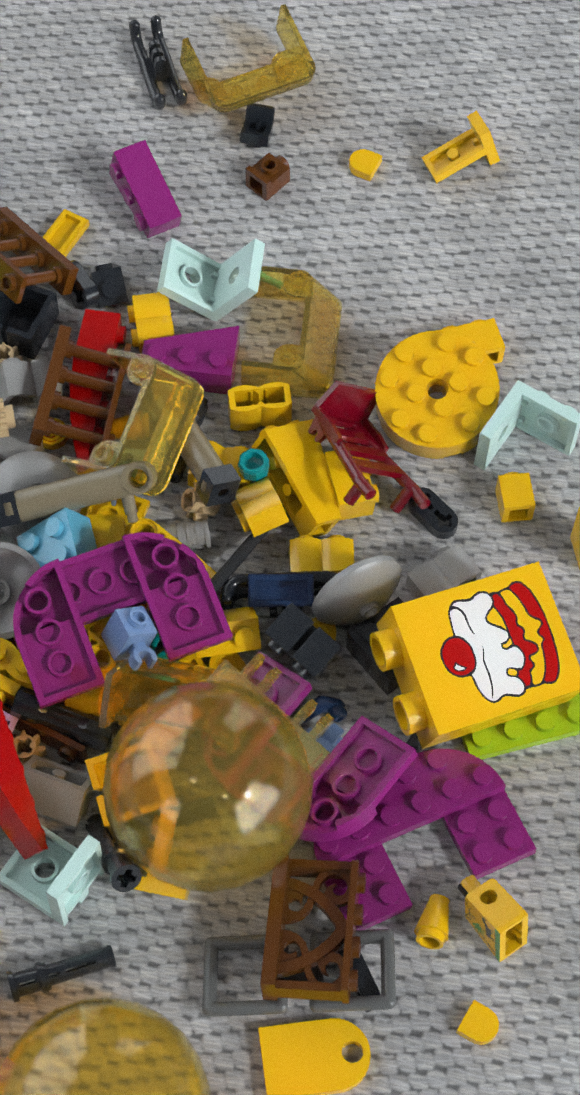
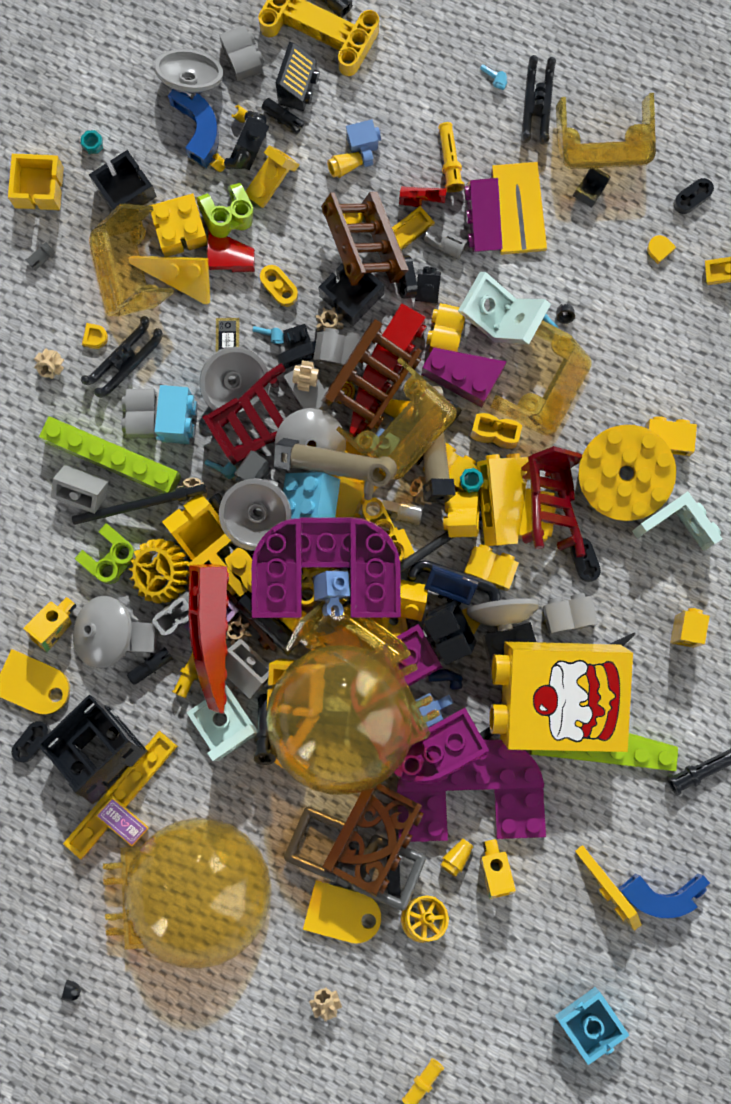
camera: 25 degrees right, 20 degrees up
(53, 199) = (414, 195): none -> red slope
(84, 158) = (451, 167): none -> yellow pin
(102, 958) = (193, 791): black pin -> none
(103, 58) = (500, 77): none -> medium azure hand
(111, 234) = (445, 242): none -> light grey hinge
(188, 176) = (520, 208): none -> yellow tile
(268, 175) = (577, 238): reddish brown brick -> none
(291, 258) = (565, 319): none -> black hinge
(373, 99) = (696, 200): none -> black beam
(423, 1031) = (425, 919): none -> yellow wheel
(479, 1024) = (457, 936): yellow tile -> none
(515, 497) = (648, 571): yellow brick -> none

